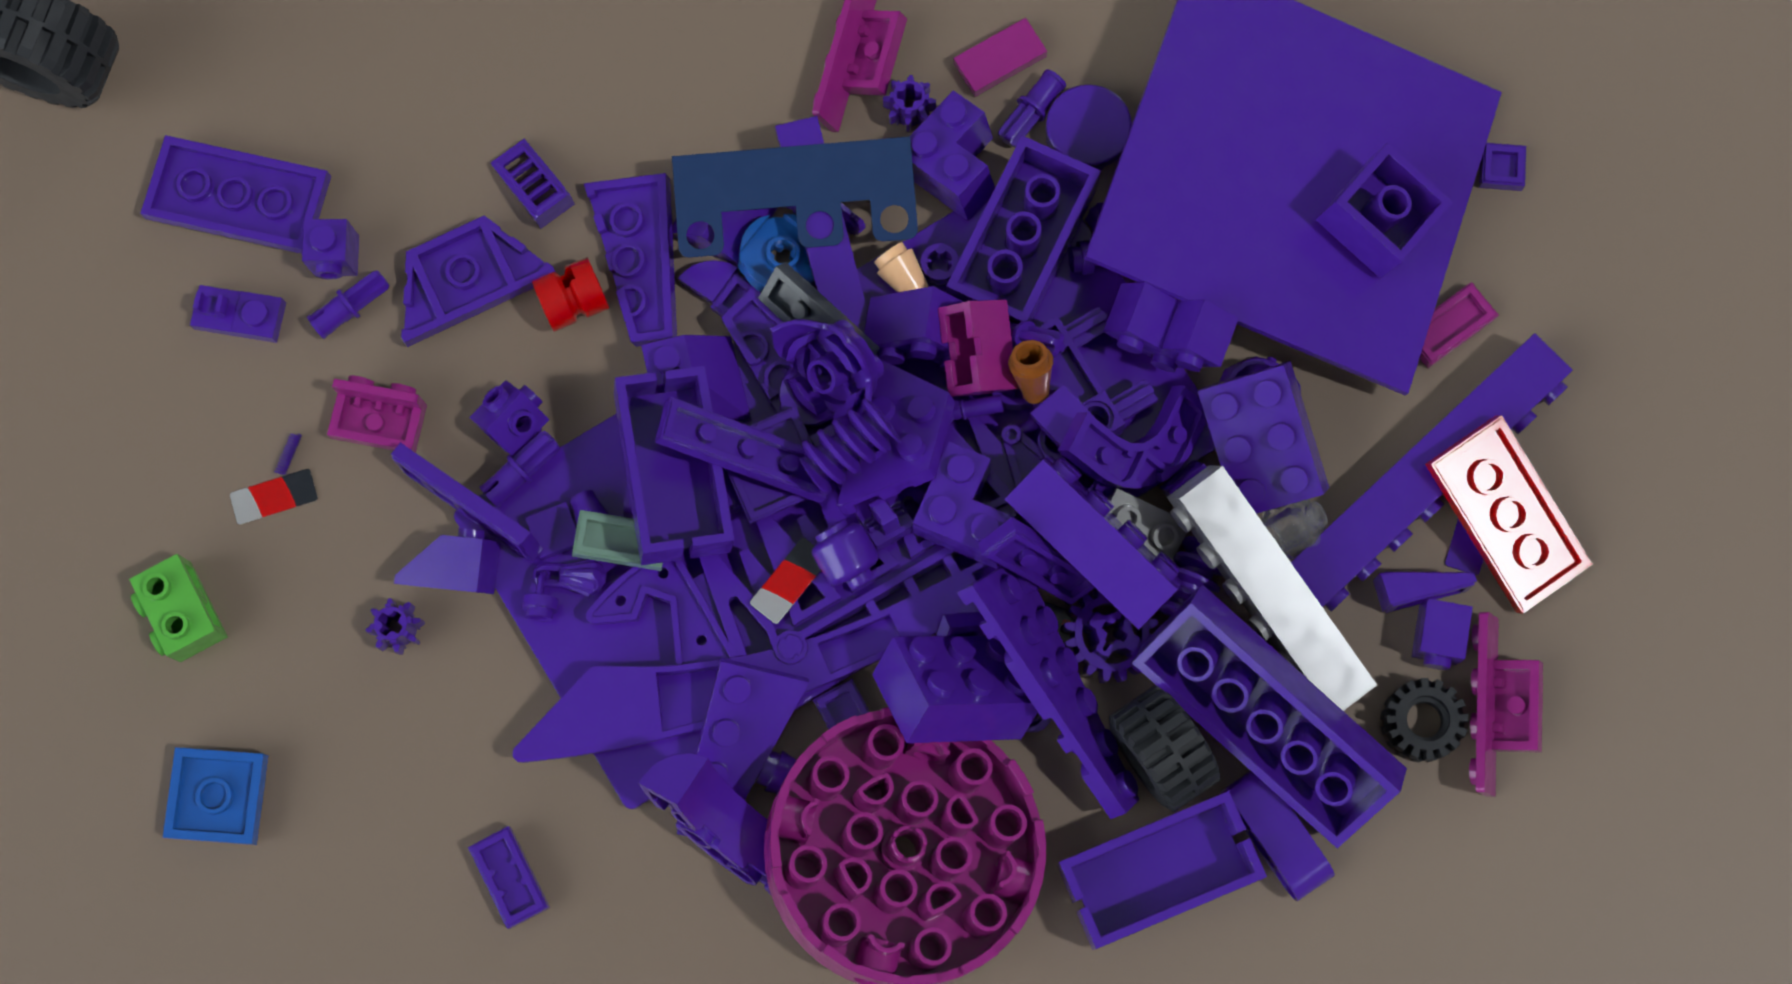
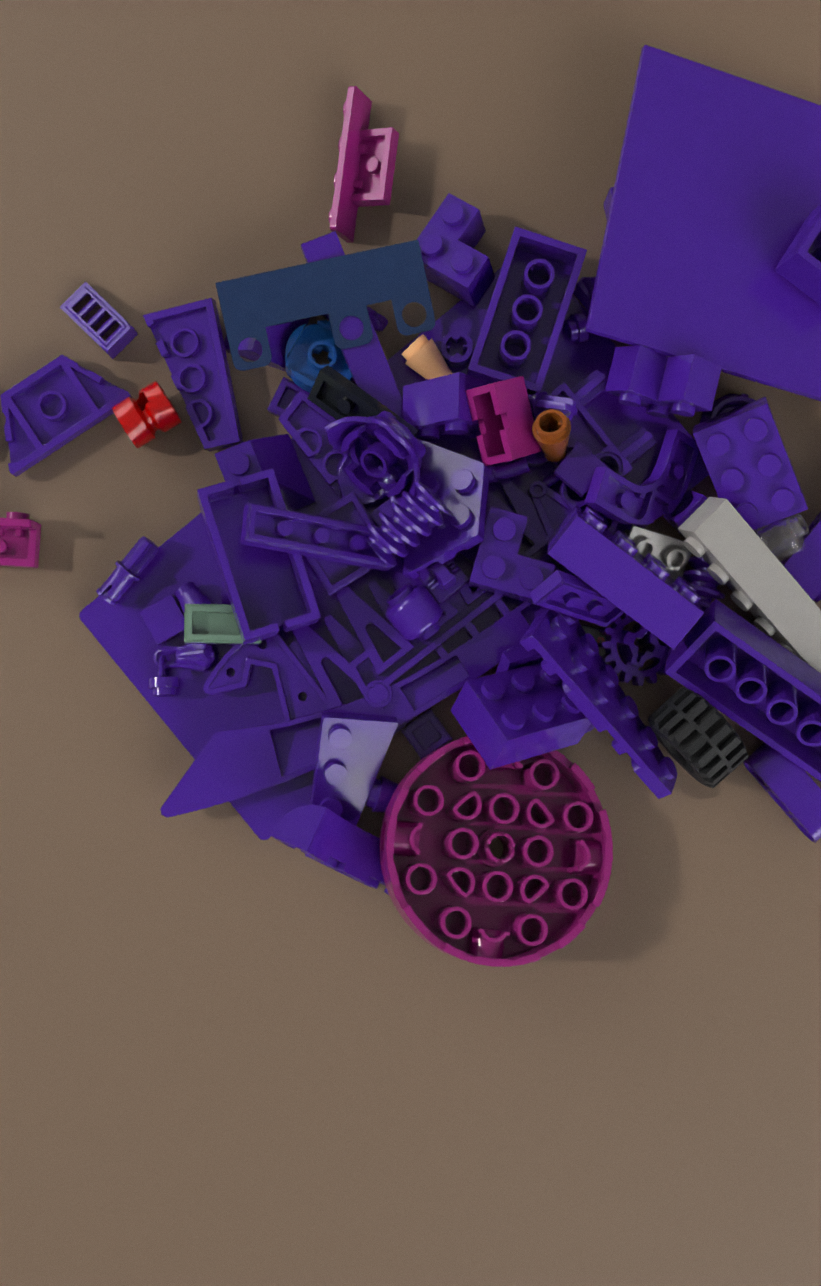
camera: 15 degrees left, 10 degrees up
(400, 614) = (36, 721): dark purple gear -> none
(455, 563) = (87, 659): dark purple slope -> none
(466, 502) = (87, 606): dark purple tile -> none
(509, 877) = (174, 909): dark purple plate -> none
(510, 416) = (113, 527): dark purple brick -> none
(708, 278) = (261, 385): dark purple tile -> none
(787, 582) = (367, 640): sticker -> none
(897, 100) = (421, 205): dark purple gear -> none
(1000, 57) = (482, 158): magenta tile -> none
(1031, 108) = (515, 200): dark purple axle -> none
(1088, 125) = (566, 209): dark purple tile -> none
(1160, 870) = (705, 836): dark purple piece -> none

